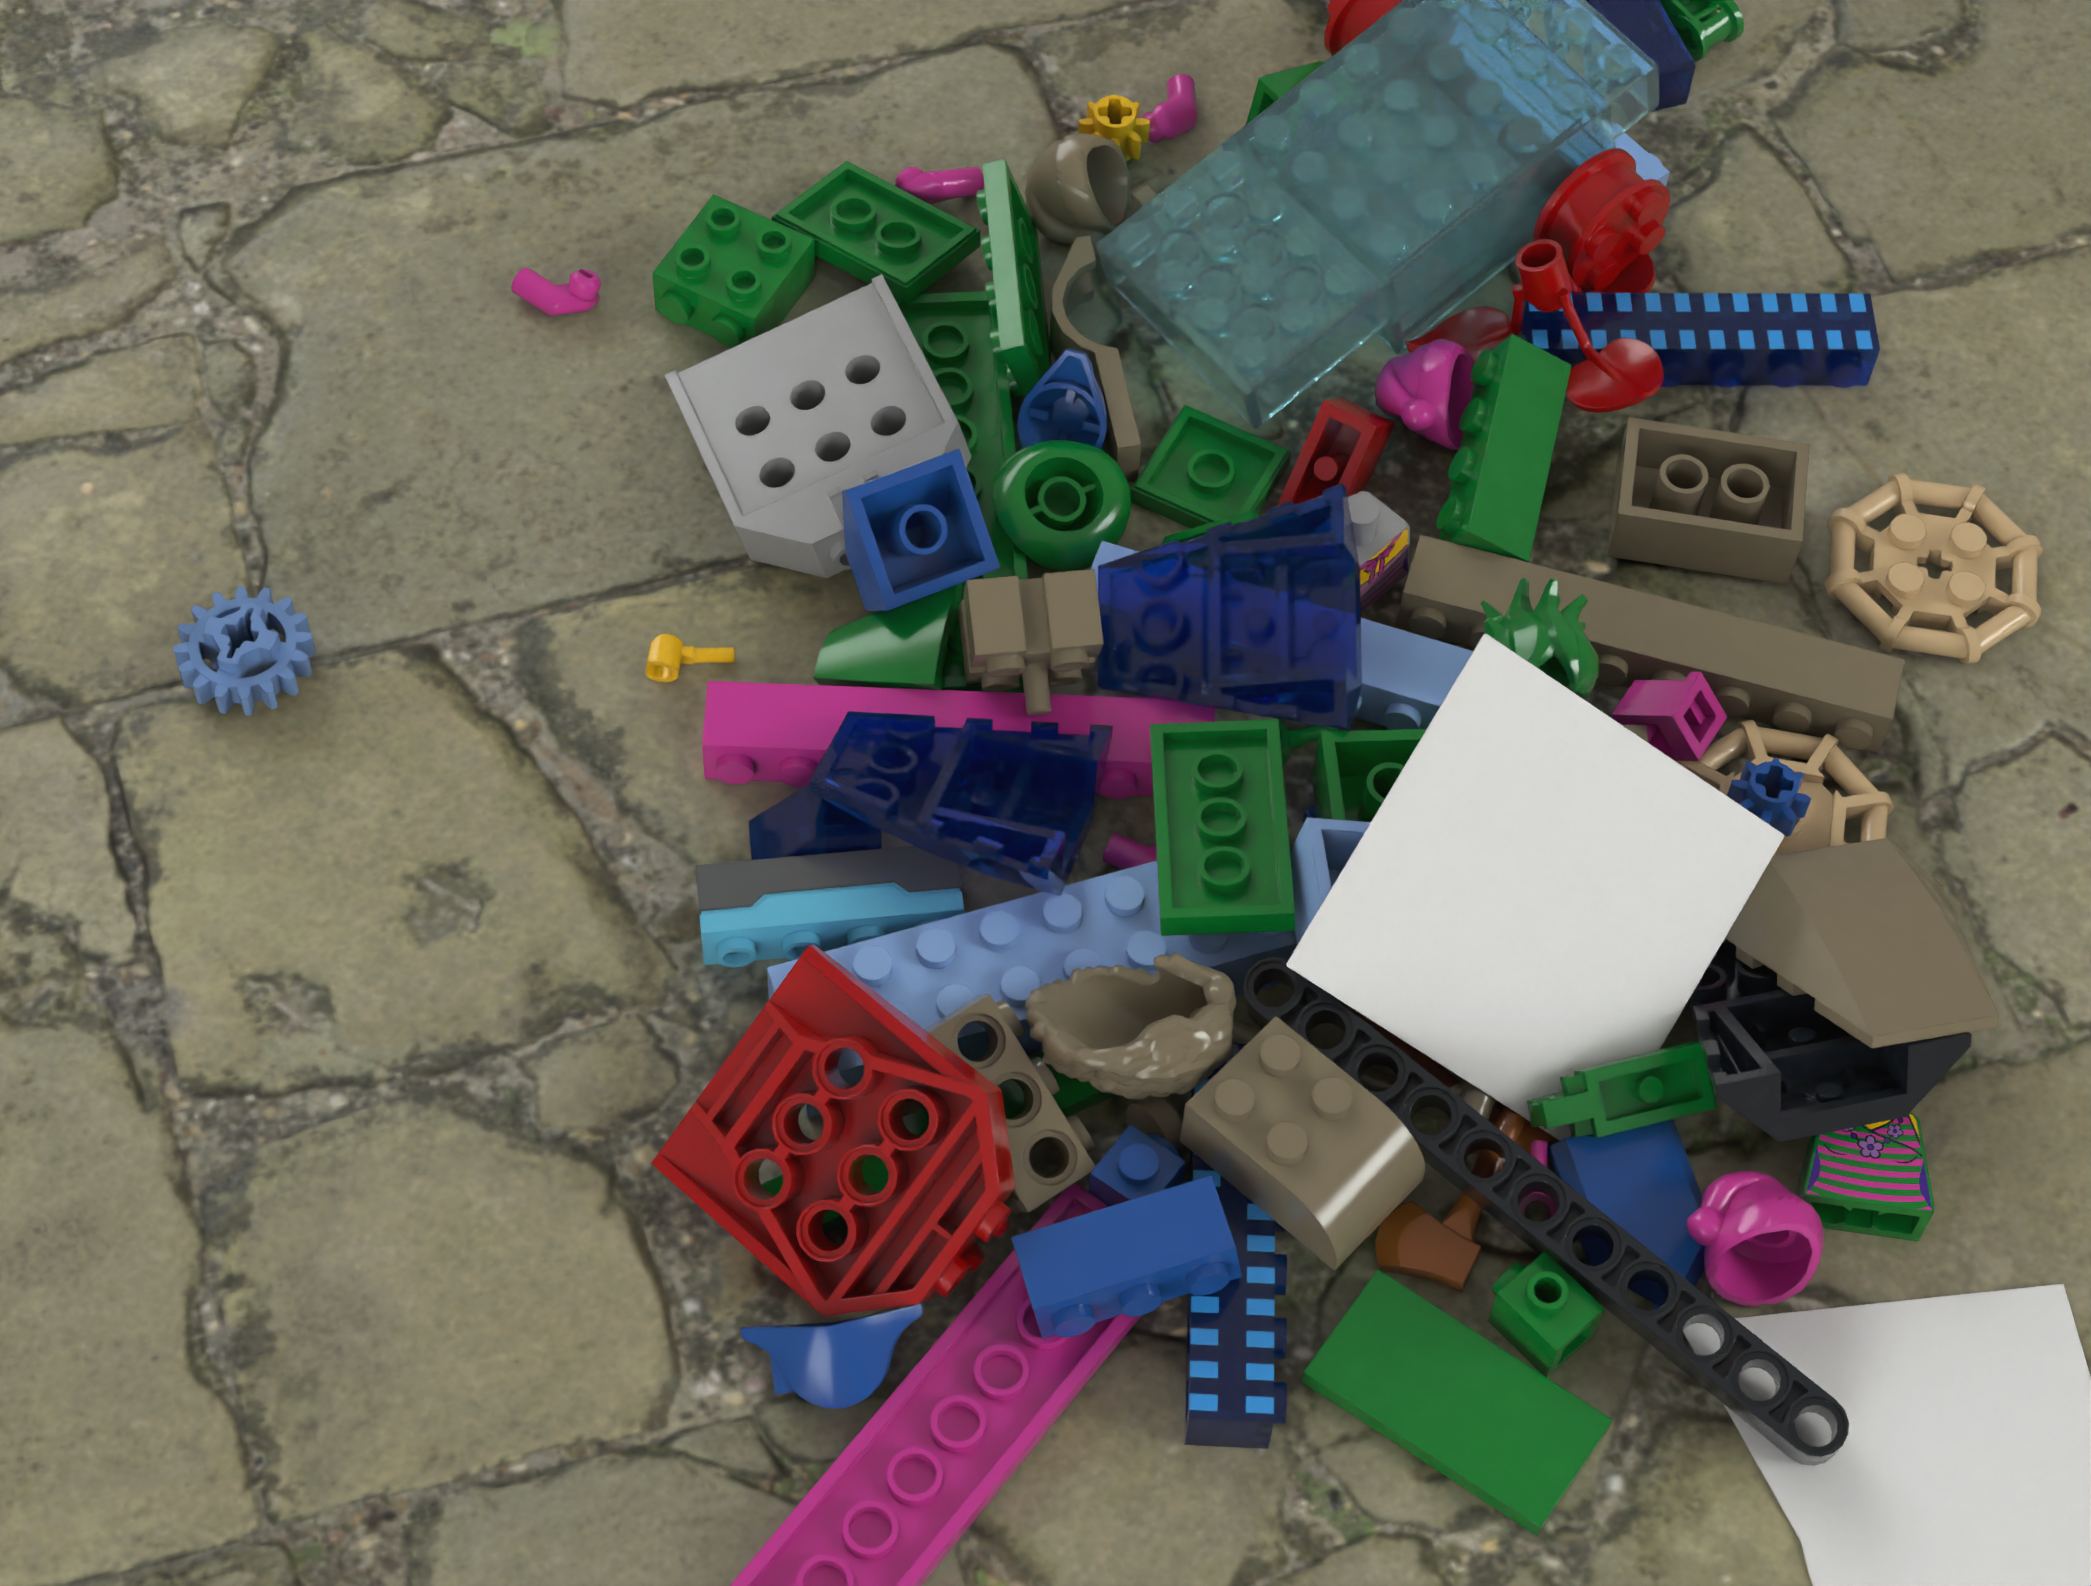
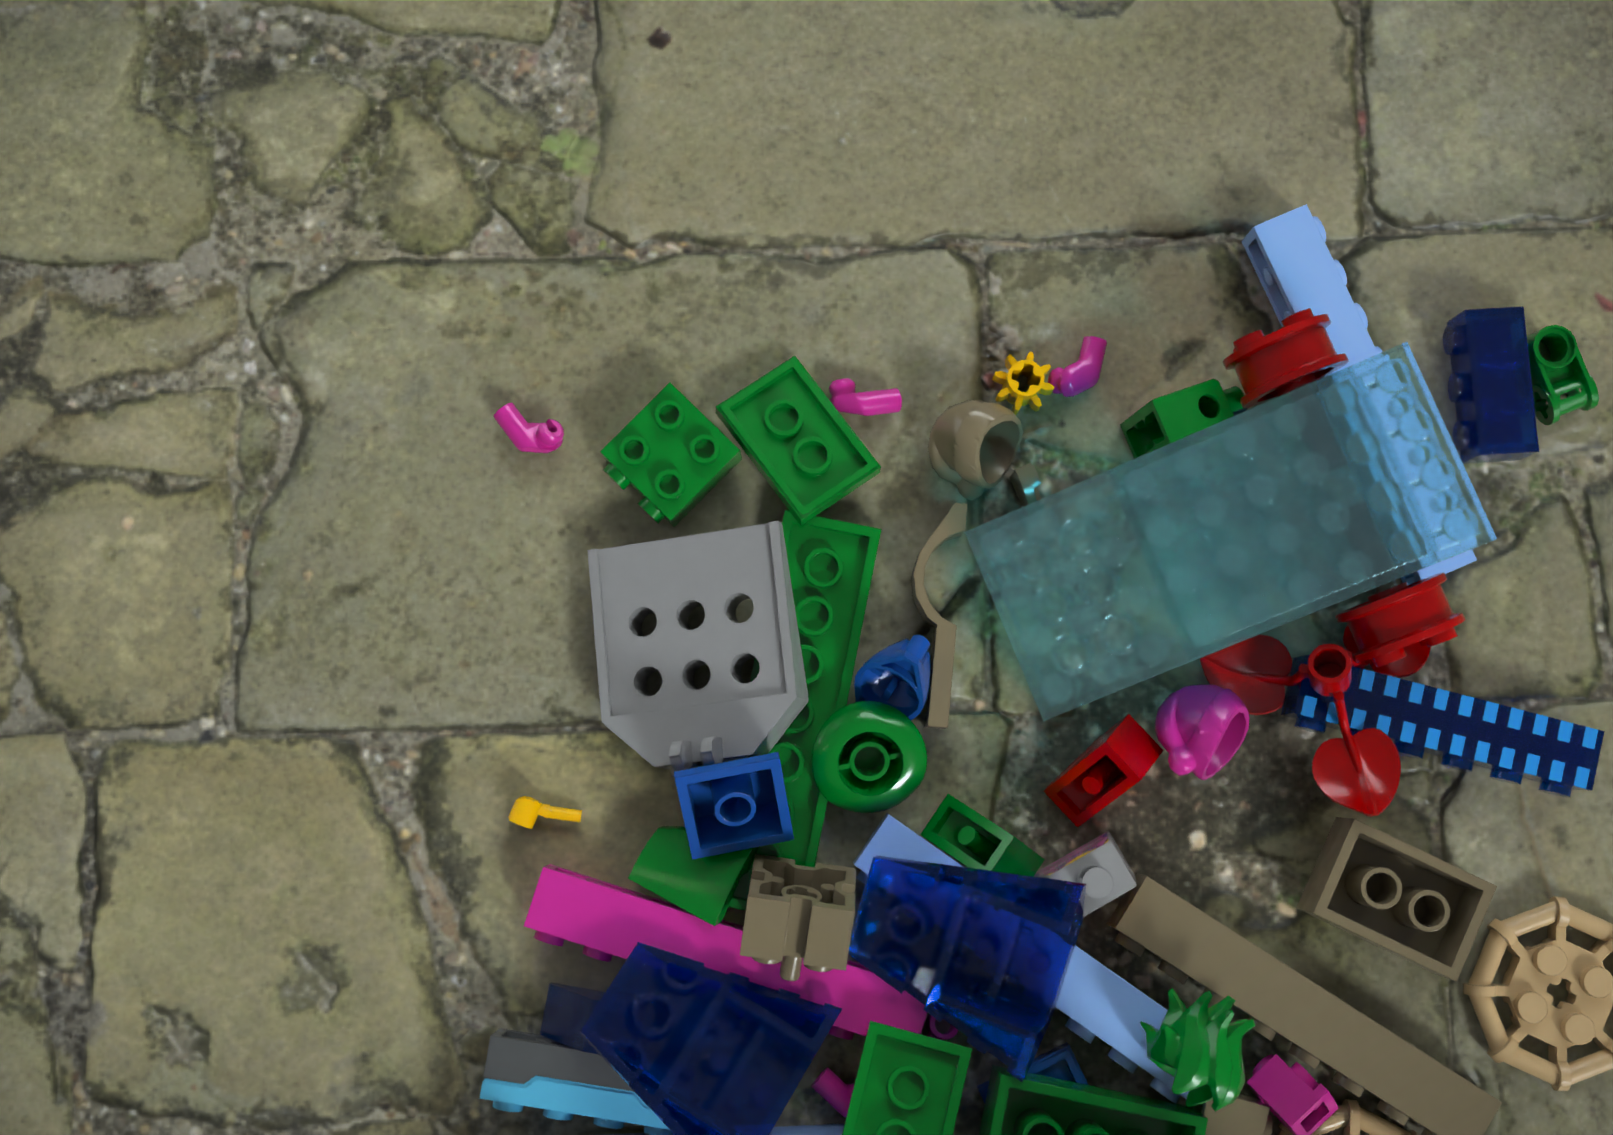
camera: 20 degrees right, 25 degrees up
(244, 650) = (191, 738): medium blue gear -> none
(1017, 287) = (893, 543): green plate -> none
(1208, 471) = (1001, 746): green tile -> none
(1505, 449) = (1240, 812): green brick -> none

